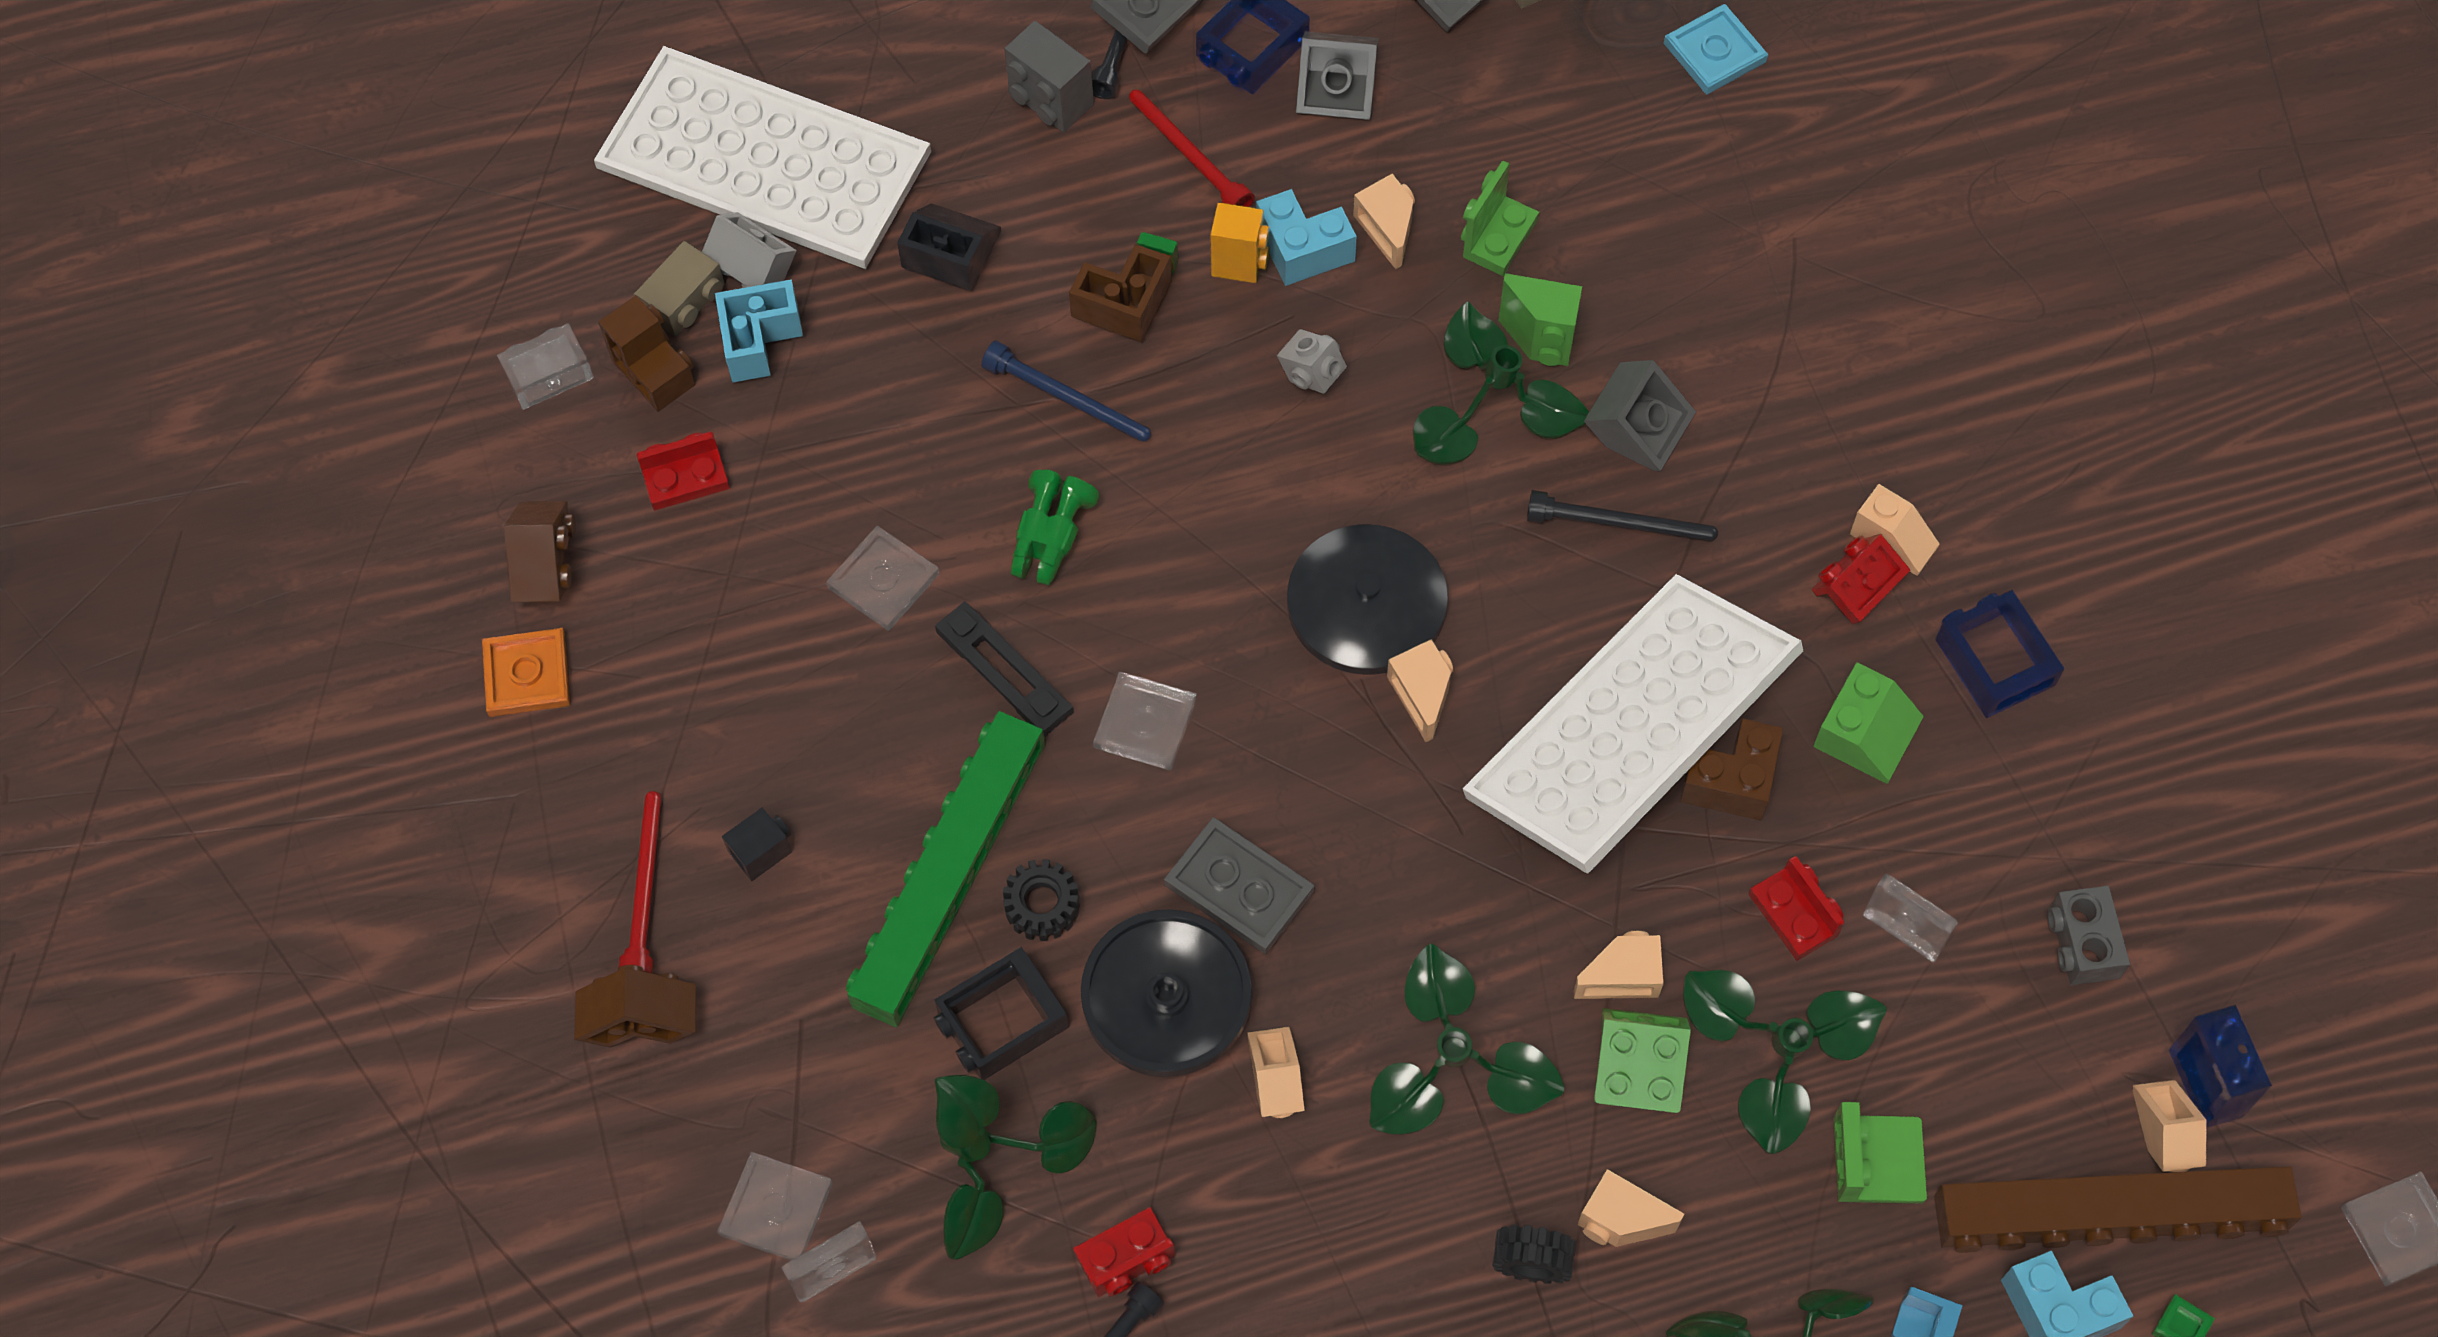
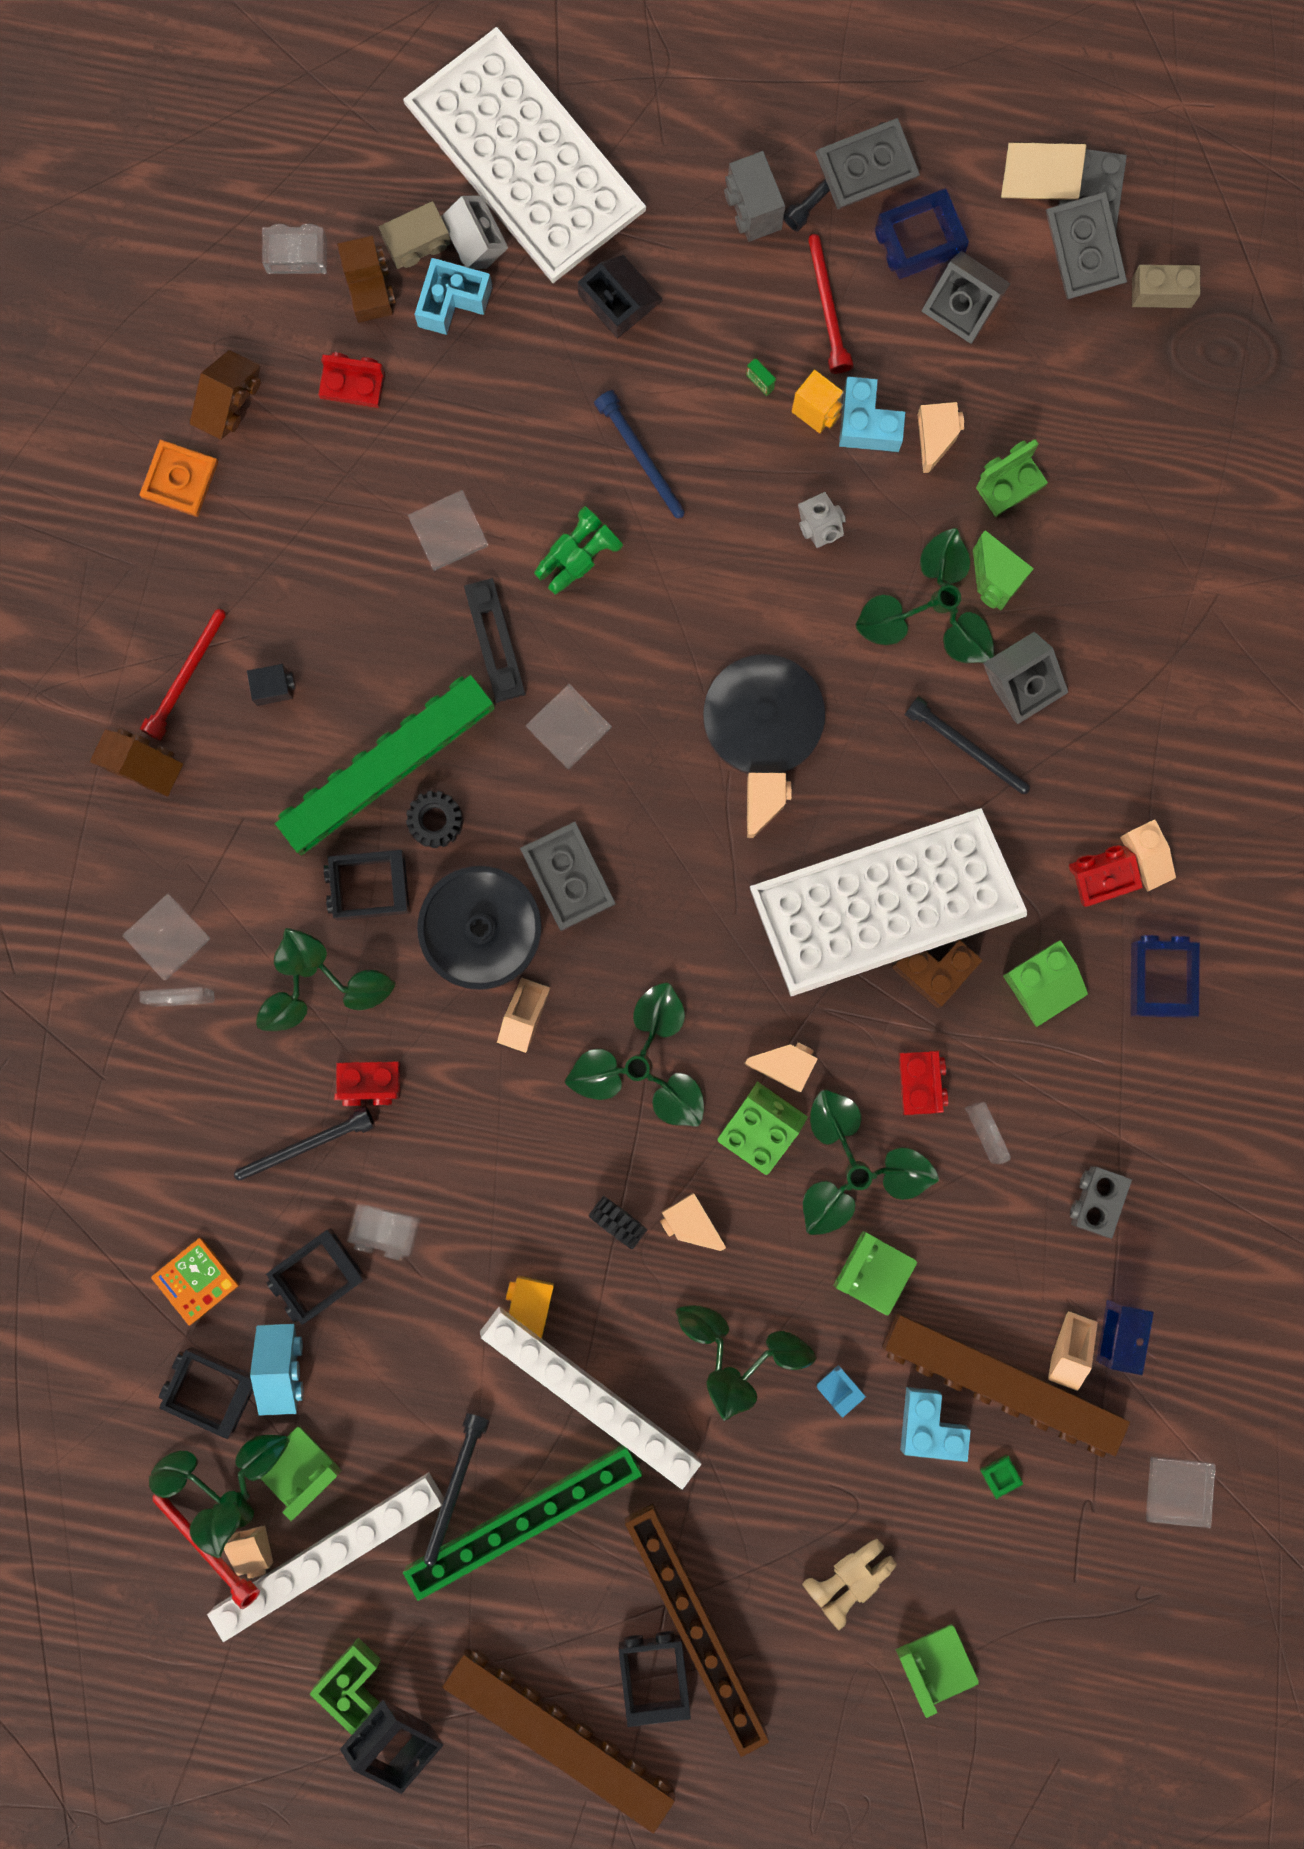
camera: 25 degrees right, 20 degrees up
(1123, 300) = (718, 406): reddish brown brick -> none
(1715, 49) = (1252, 413): medium azure tile -> none

